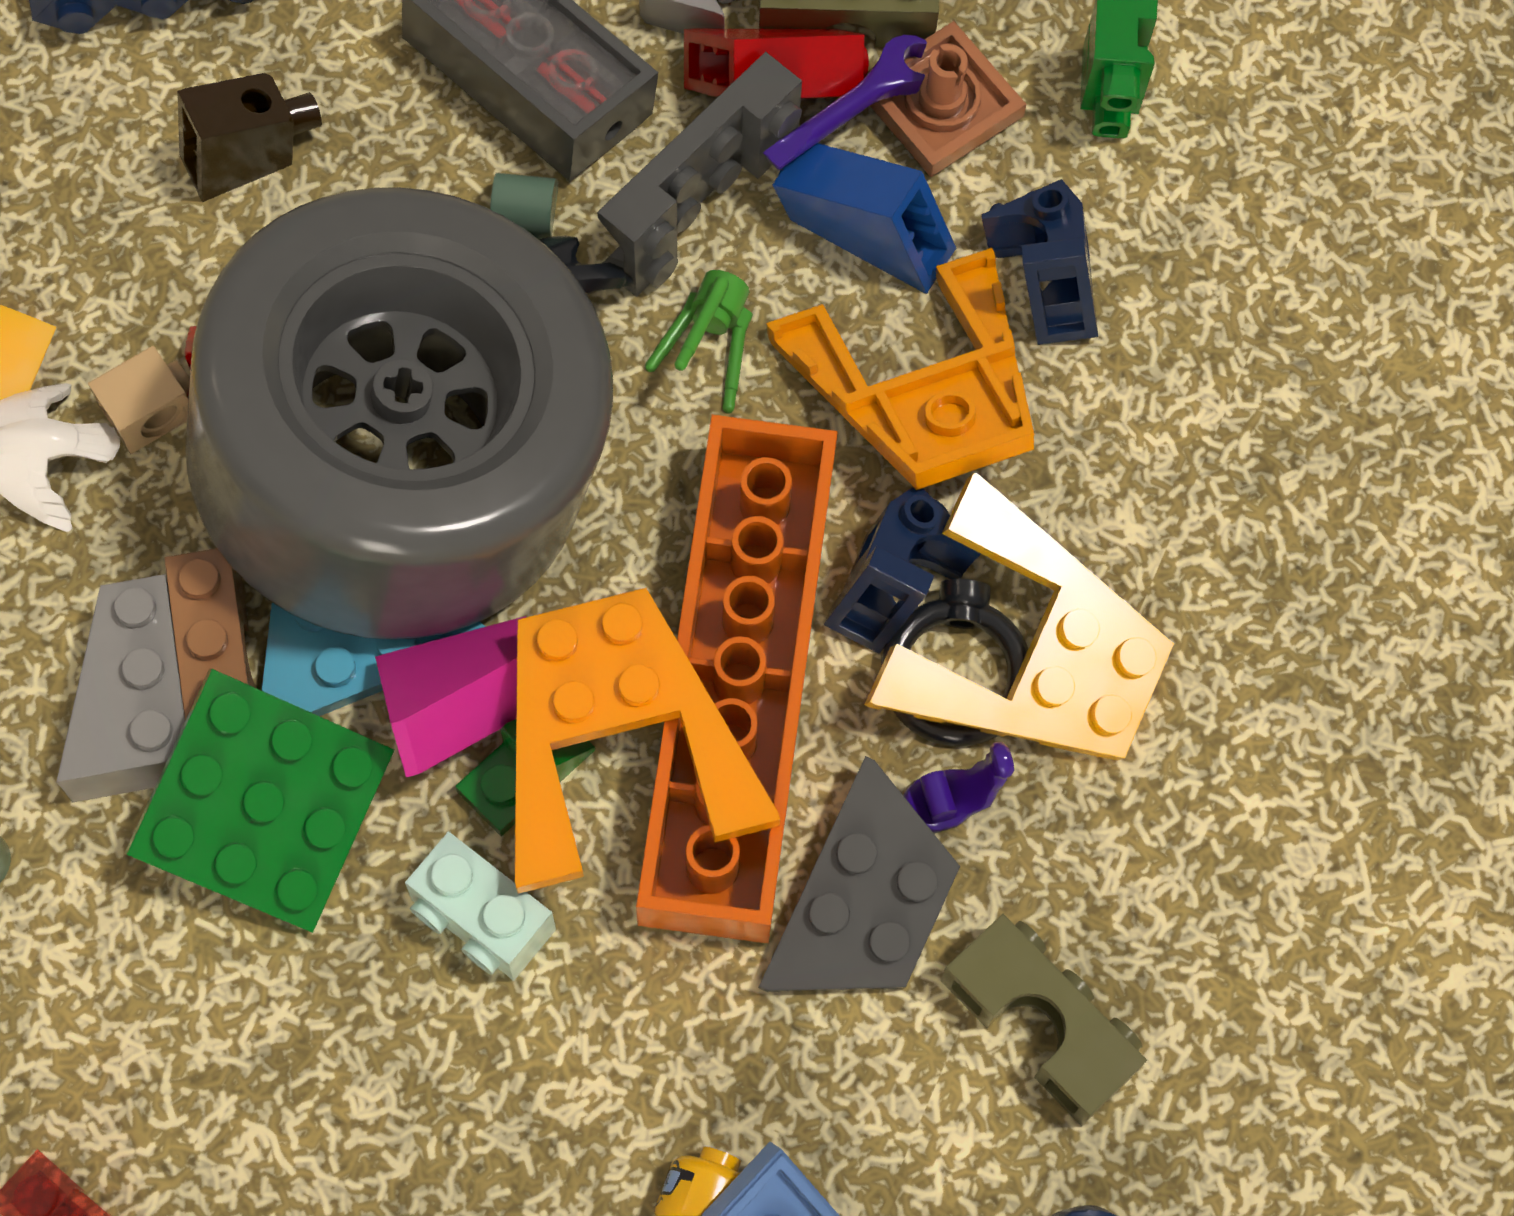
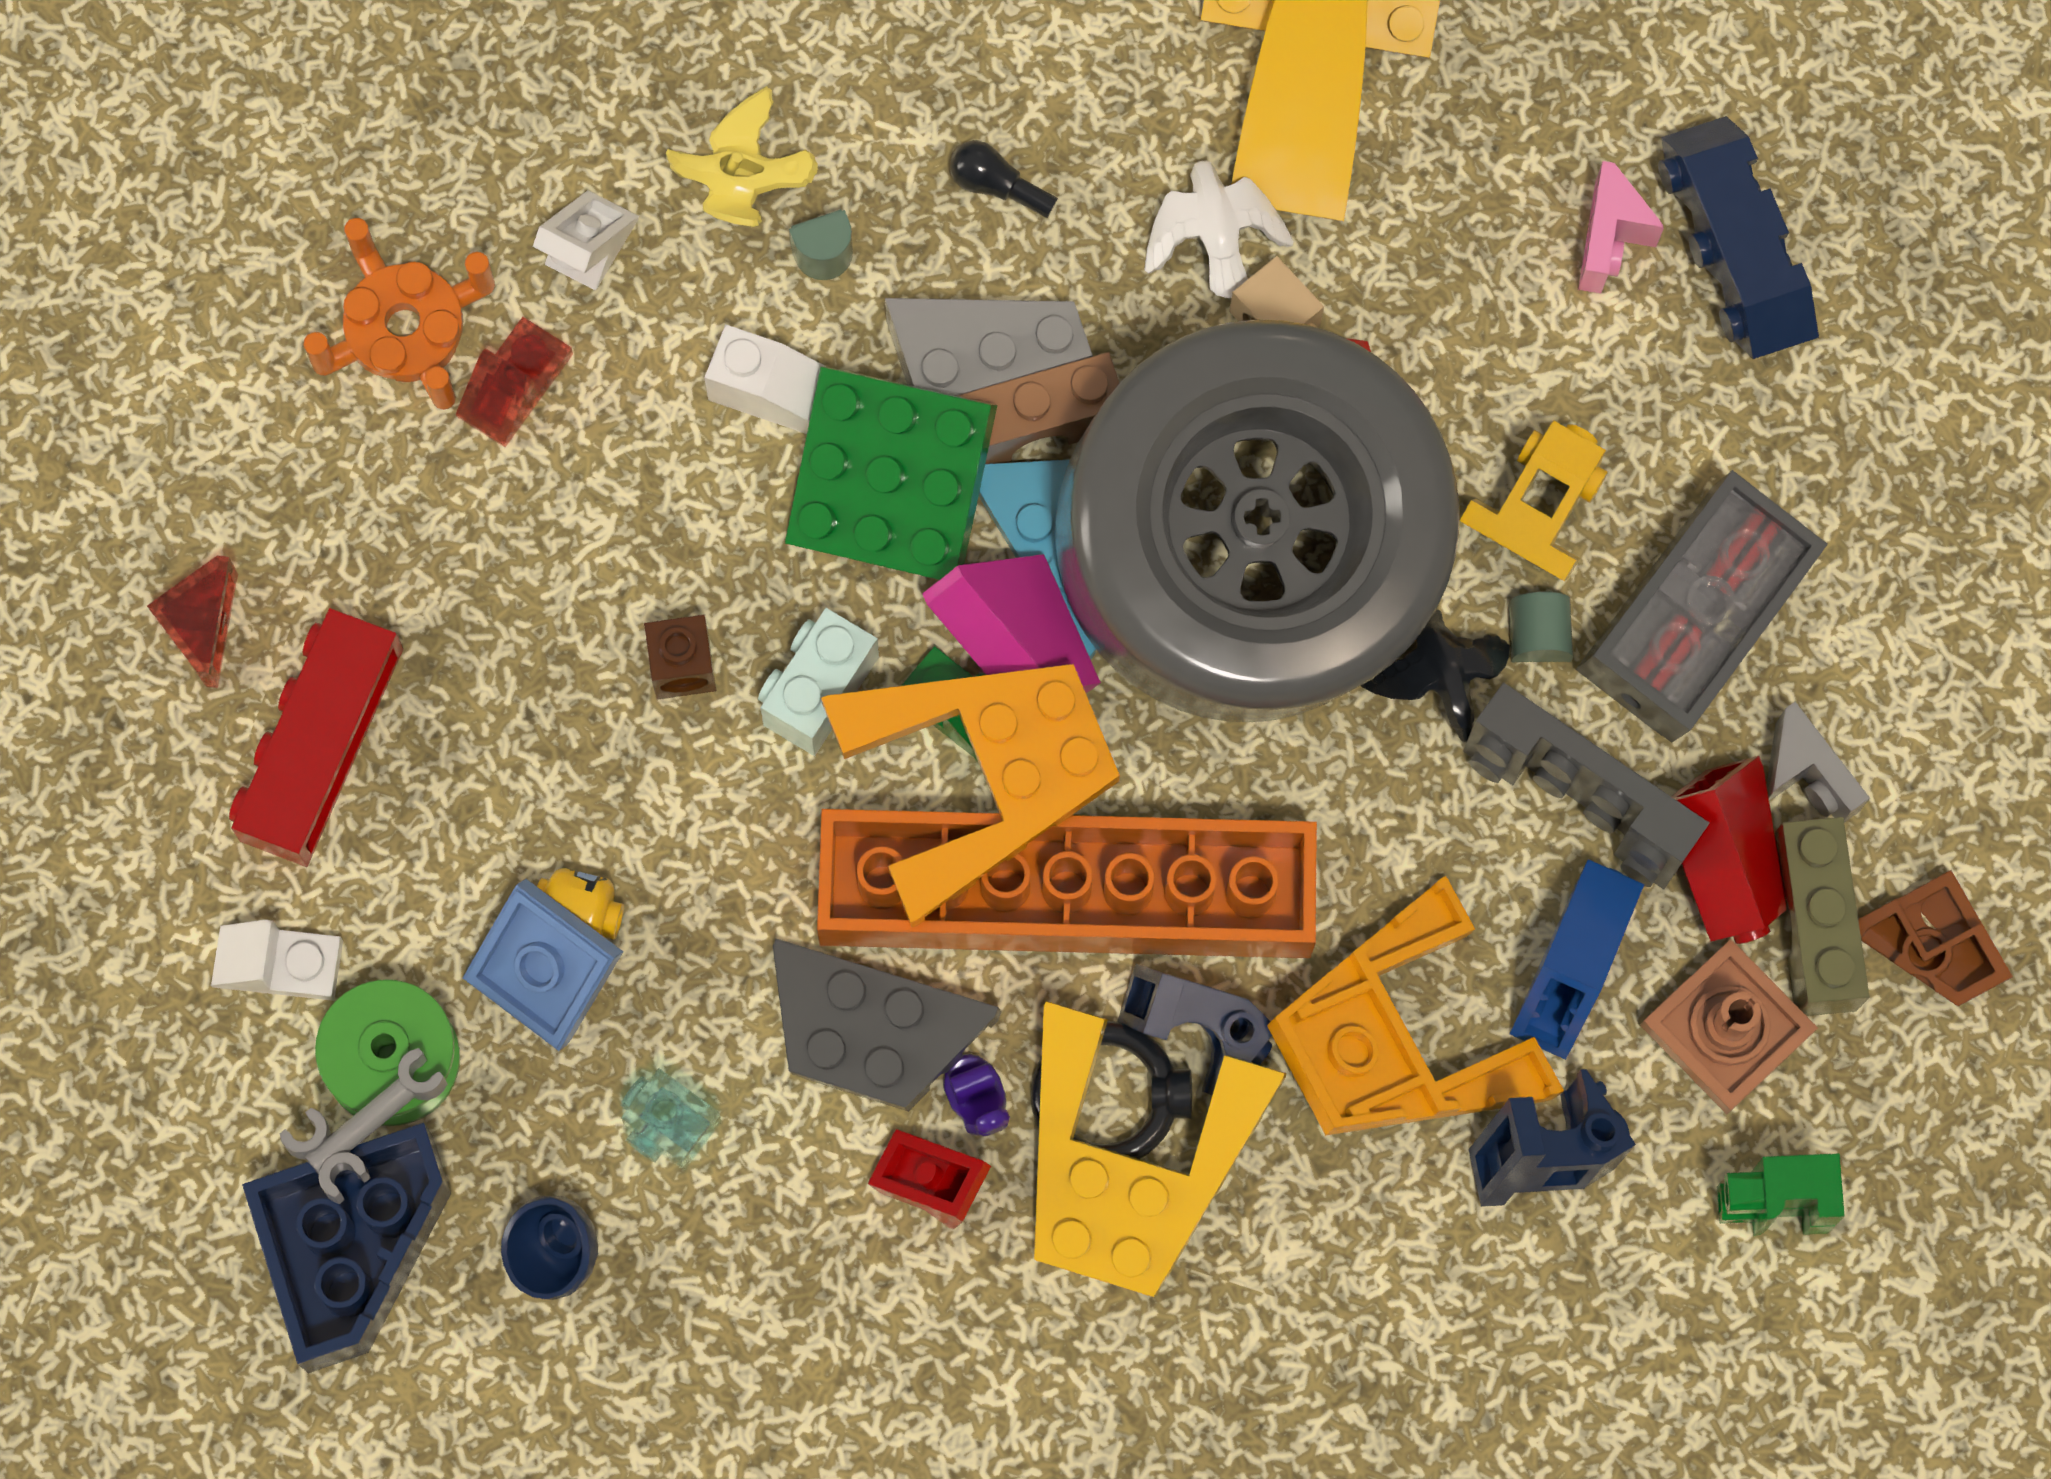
camera: 85 degrees right, 5 degrees up
(107, 79) = (1615, 217): none -> bright pink slope
(123, 927) = (762, 379): none -> white slope
(239, 131) = (1565, 328): dark brown torso -> none
(365, 131) = (1570, 457): none -> yellow tile
(429, 1055) = (680, 657): none -> reddish brown brick
(713, 310) = (1455, 821): bright green plant -> none
(886, 79) = (1724, 958): dark purple piece -> none
(950, 1120) = (667, 1119): none -> clear light blue brick
(1009, 971) = (738, 1242): olive arch -> none
(1038, 845) = (929, 1177): none -> red slope

